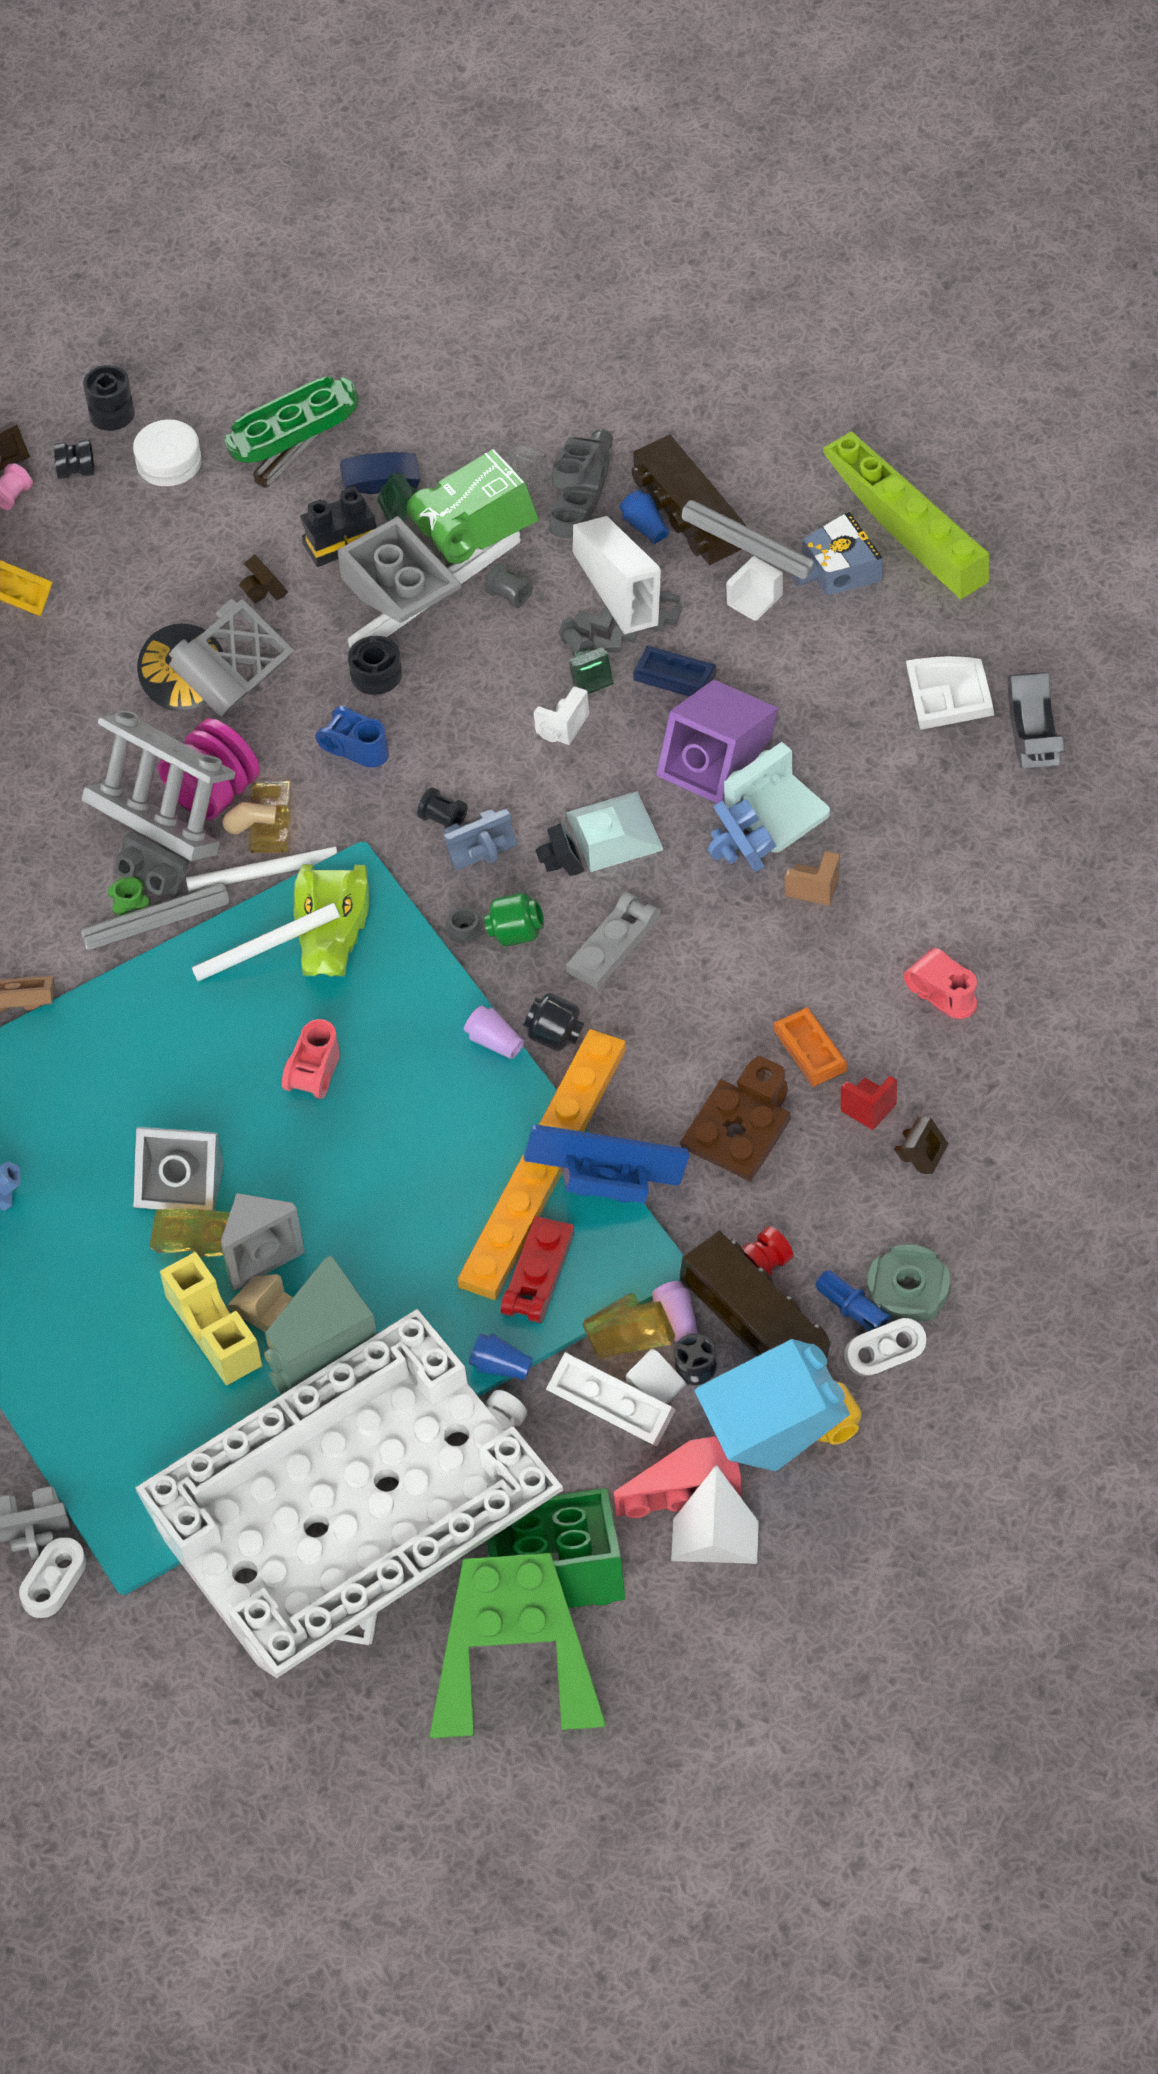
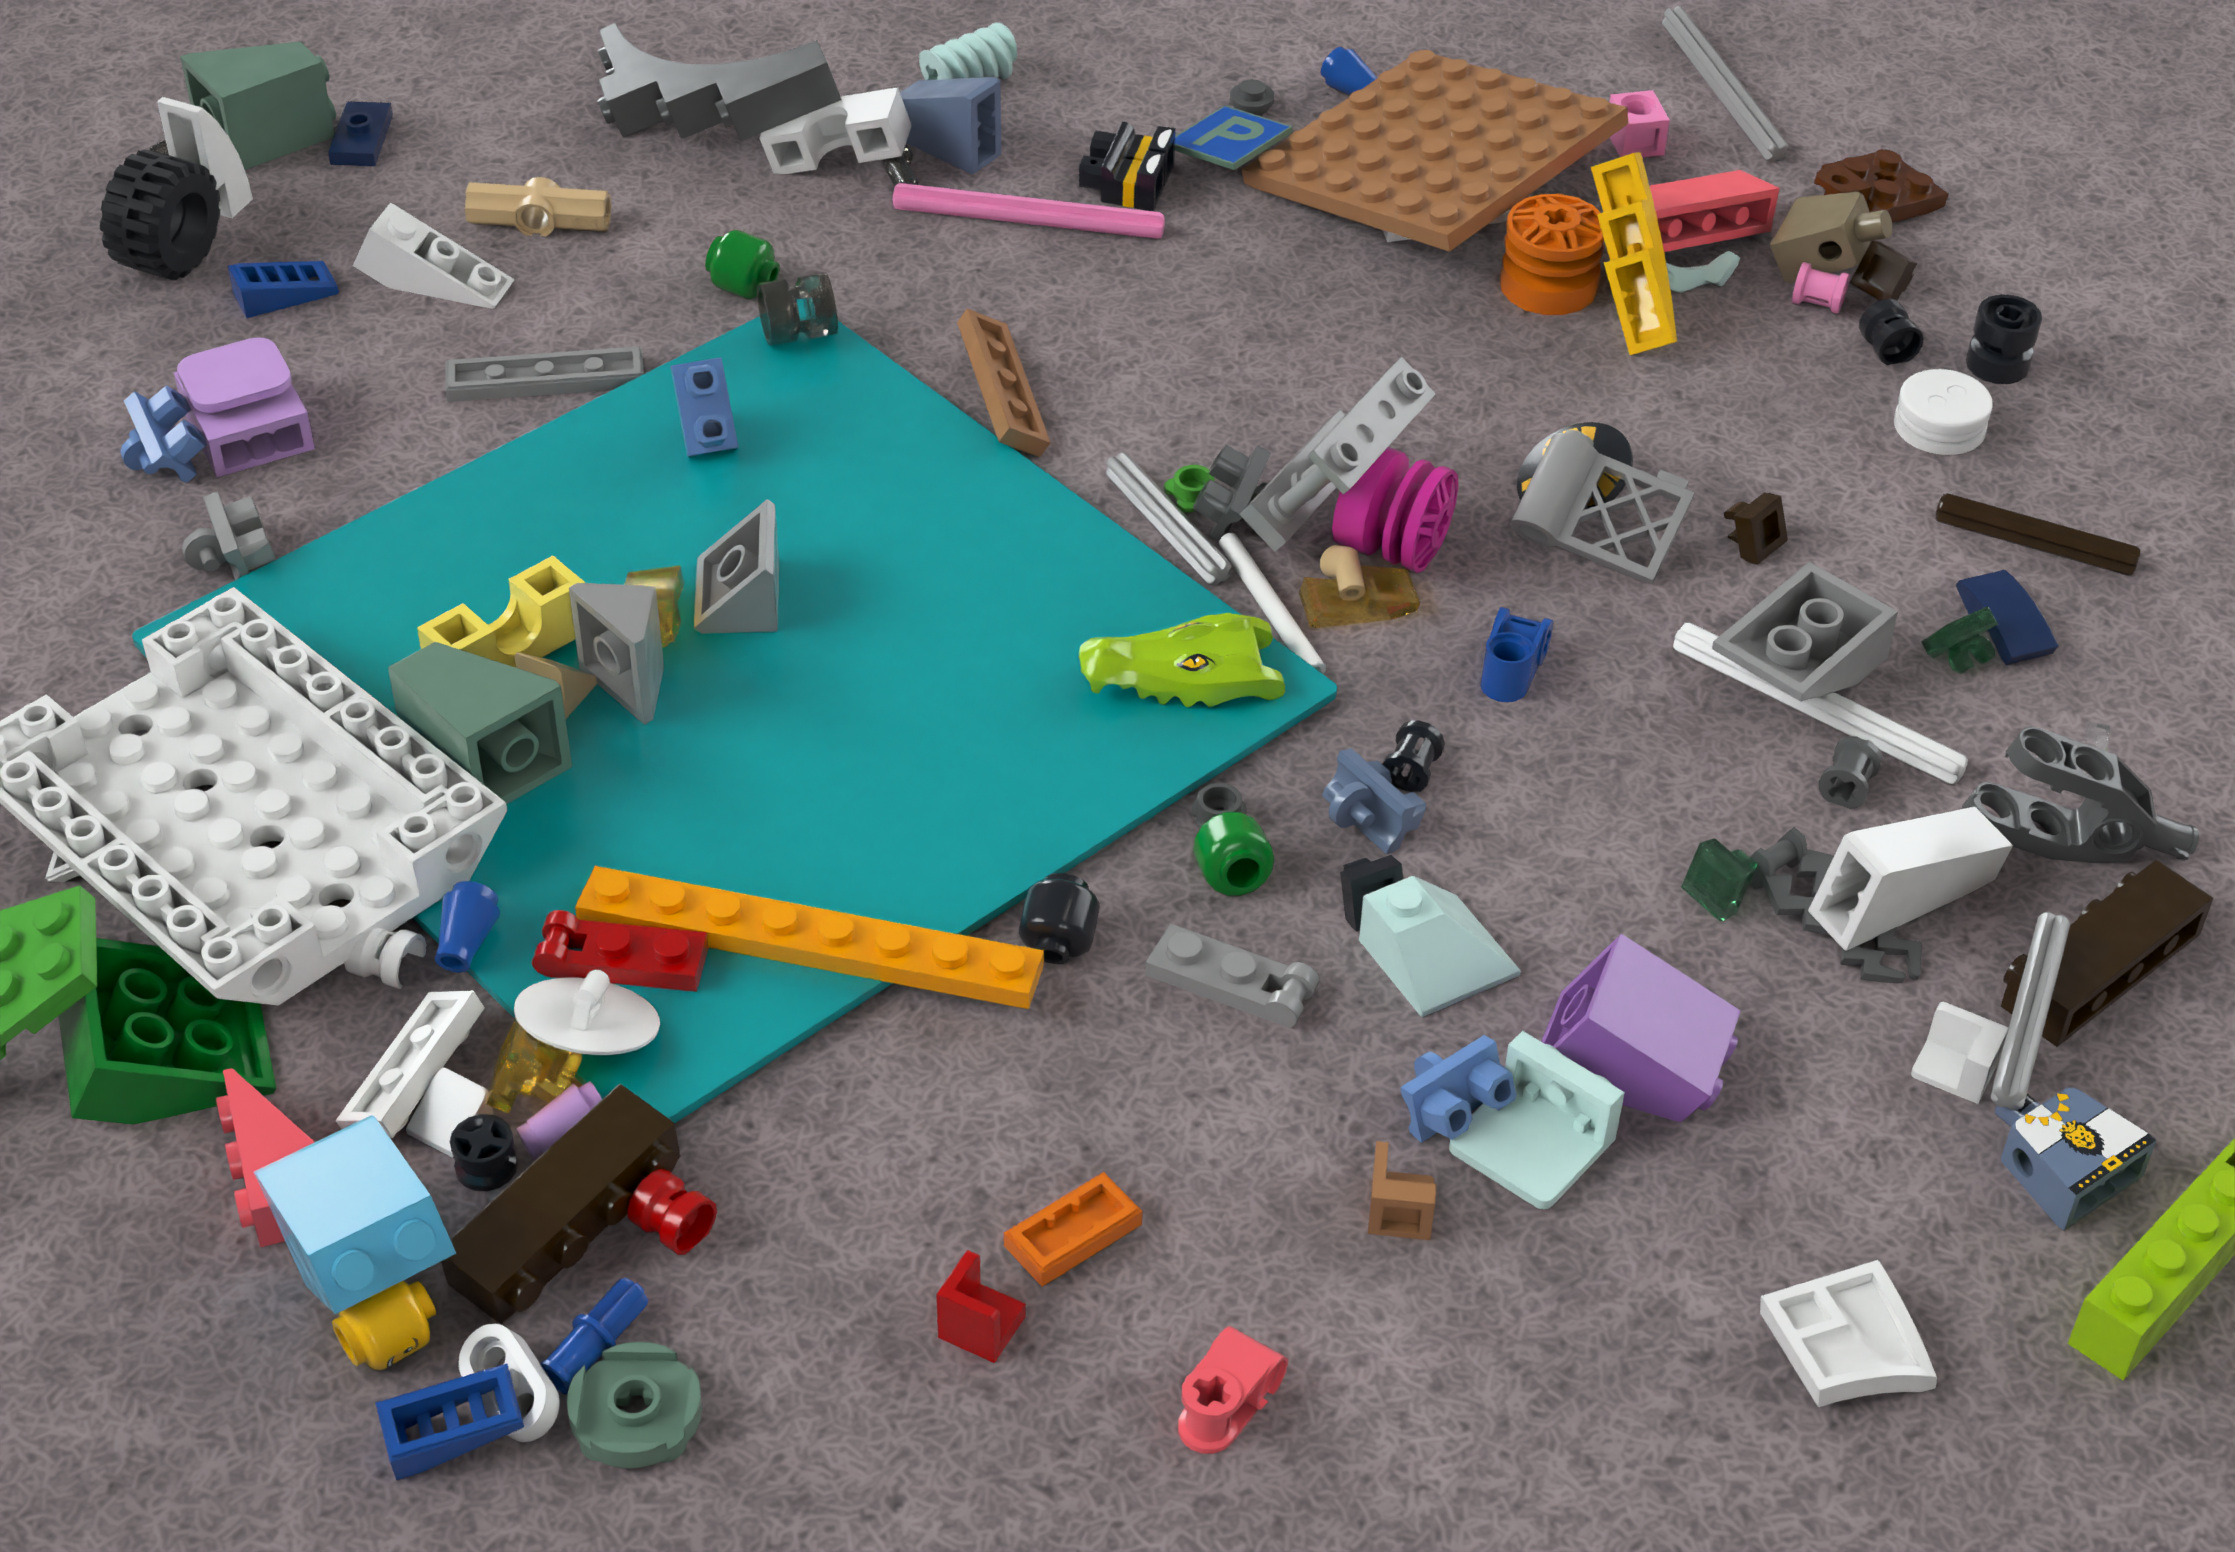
camera: 75 degrees right, 10 degrees down
(50, 1579) = (155, 575): white plate -> none
(266, 942) = (1123, 602): white piece -> none
(291, 419) = (2055, 510): green tile -> none
(312, 1065) = (942, 675): coral piece -> none
(335, 525) = (1880, 568): black hips -> none
(375, 665) = (1648, 653): black wheel -> none
(473, 507) = (1959, 700): bright green piece -> none
(493, 1032) = (1018, 847): lavender cone -> none
(566, 720) = (1622, 864): white bracket -> none
(599, 1287) = (587, 1015): none -> white shield
(604, 1163) = (785, 992): blue bracket -> none
(644, 516) = (2056, 892): blue cone -> none
(673, 671) = (1759, 979): dark blue plate -> none
(715, 1525) = (181, 1216): white slope -> none
(753, 1105) = (946, 1165): reddish brown plate -> none
(917, 1403) = (423, 1404): none -> blue slope
(922, 1145) = (896, 1393): dark brown tile -> none
(1033, 721) = (1808, 1462): arch -> none

